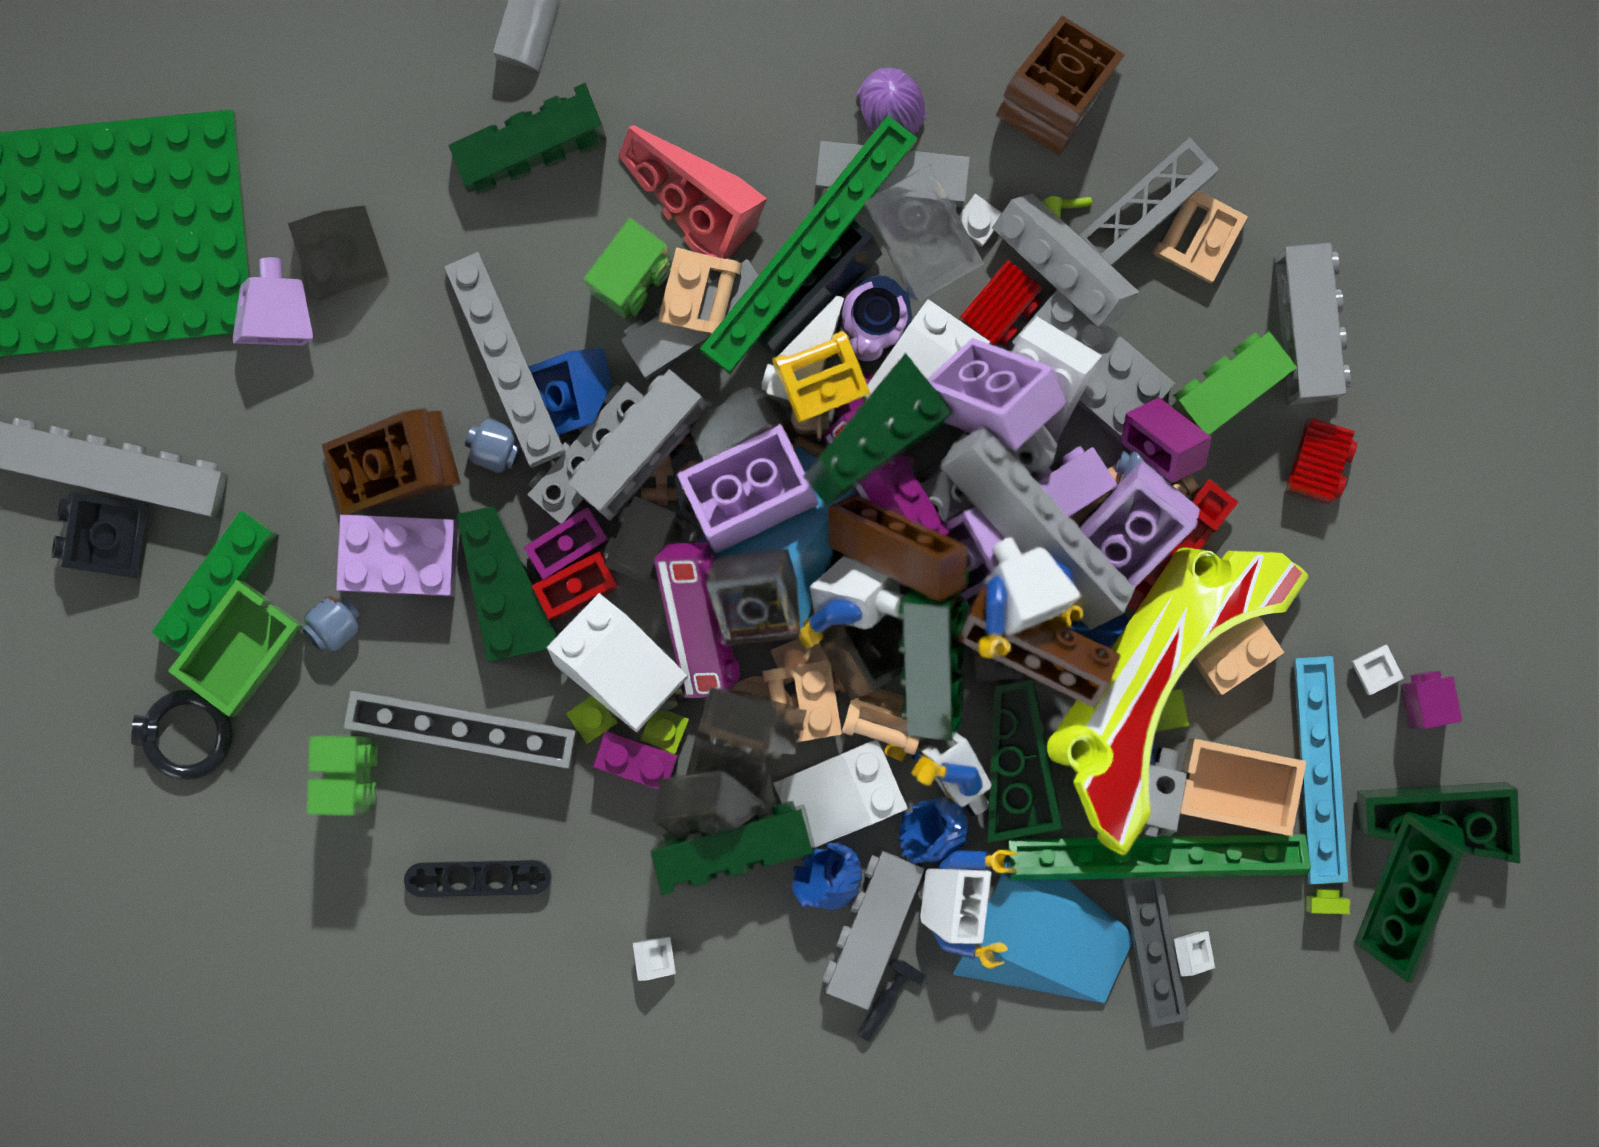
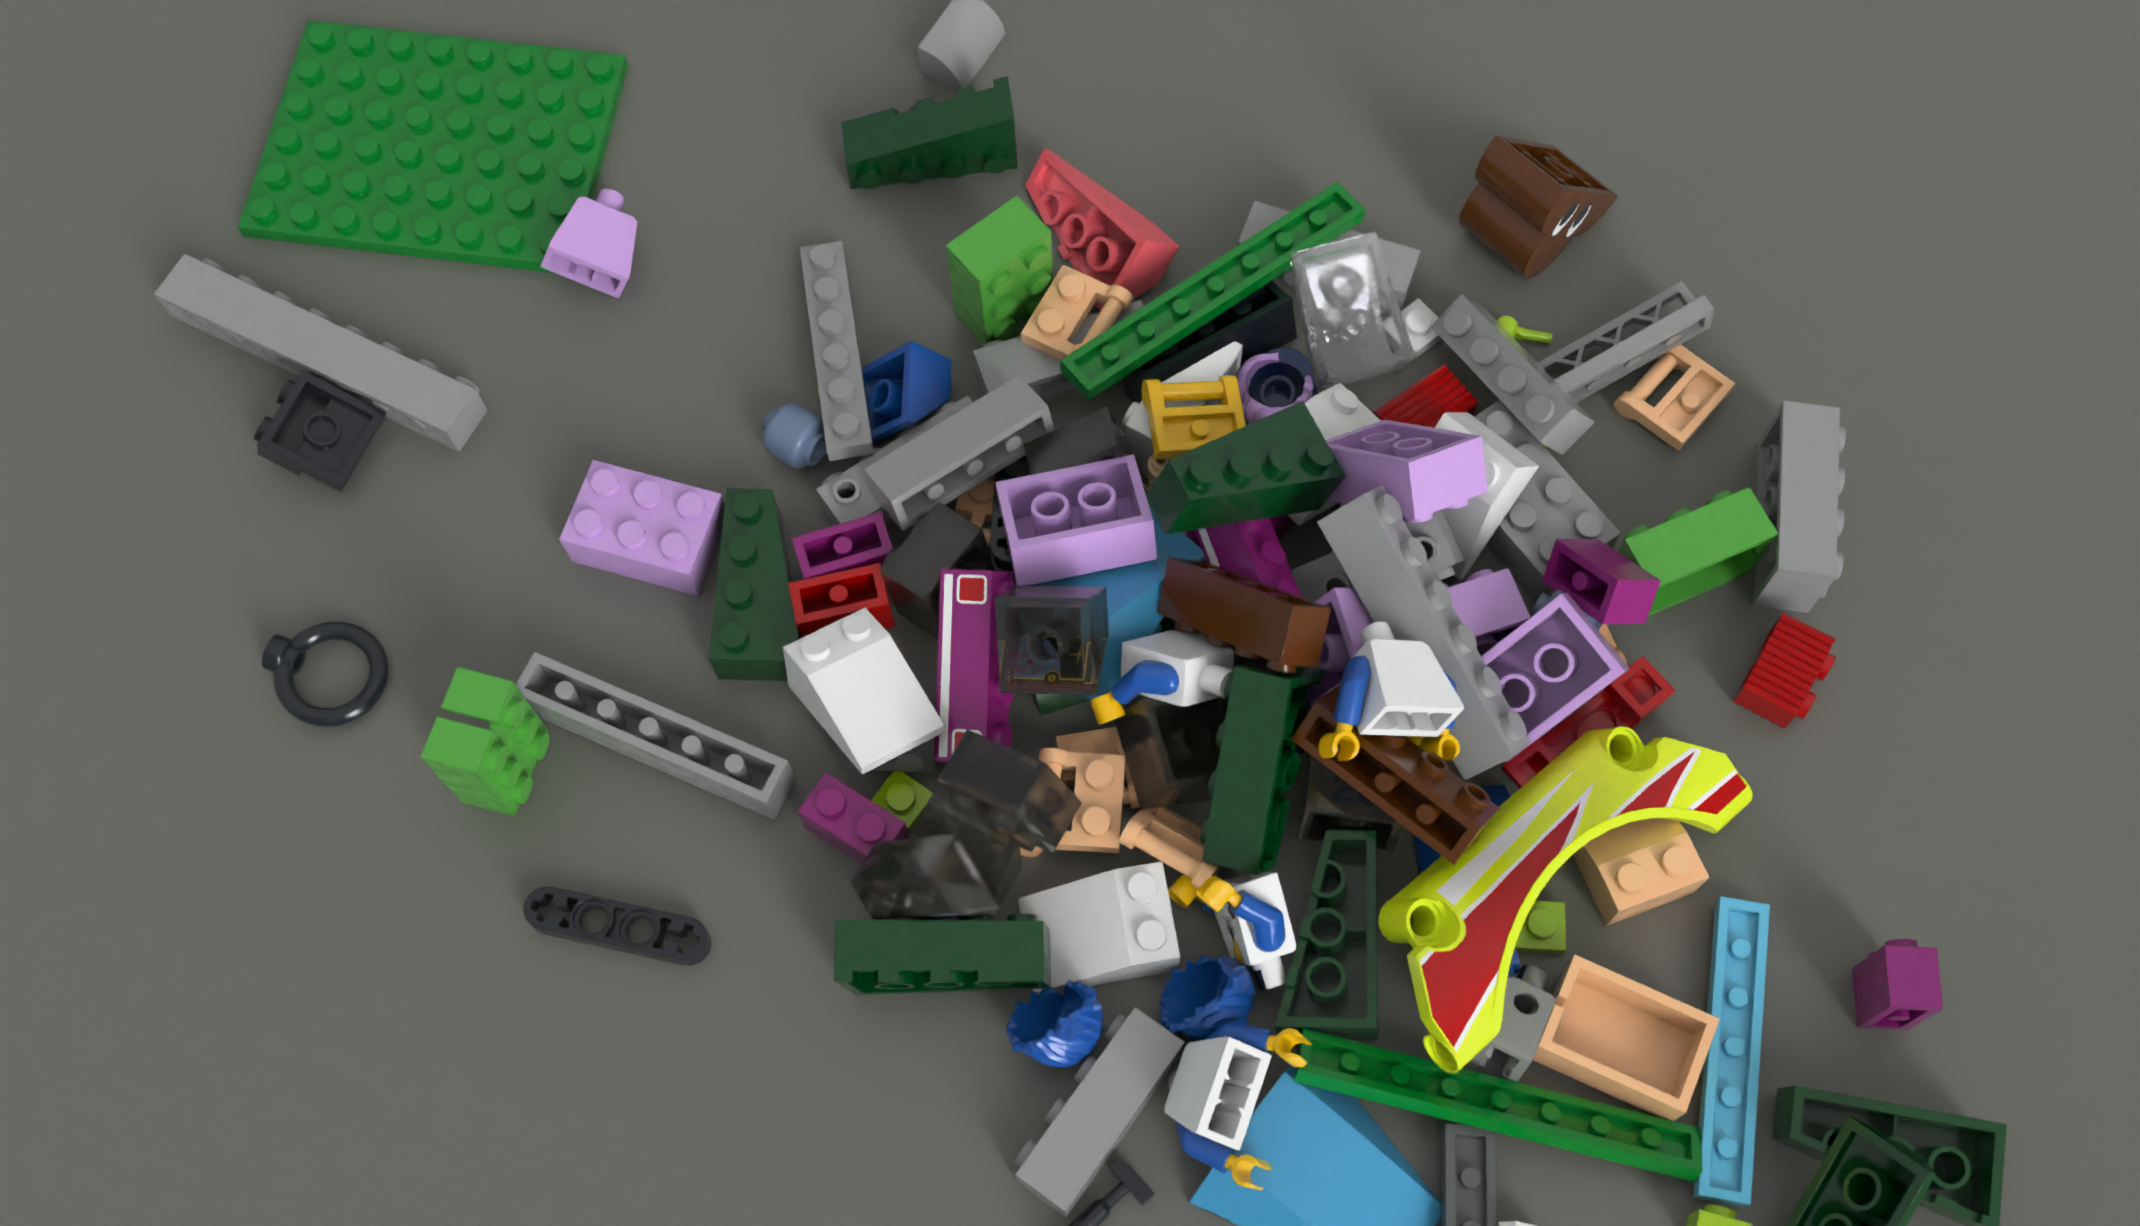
camera: 20 degrees right, 20 degrees down
(228, 561) = (426, 510): green brick -> none
(236, 648) = (422, 582): bright green piece -> none
(331, 623) = (543, 585): sand blue head -> none
(338, 250) = (687, 206): clear smoke slope -> none
(391, 461) = (677, 414): reddish brown brick -> none
(591, 719) = (812, 762): lime plate -> none
(654, 958) = (805, 1078): white plate -> none
(892, 94) = (1353, 173): medium lavender hair -> none
(1377, 670) = (1825, 938): white plate -> none

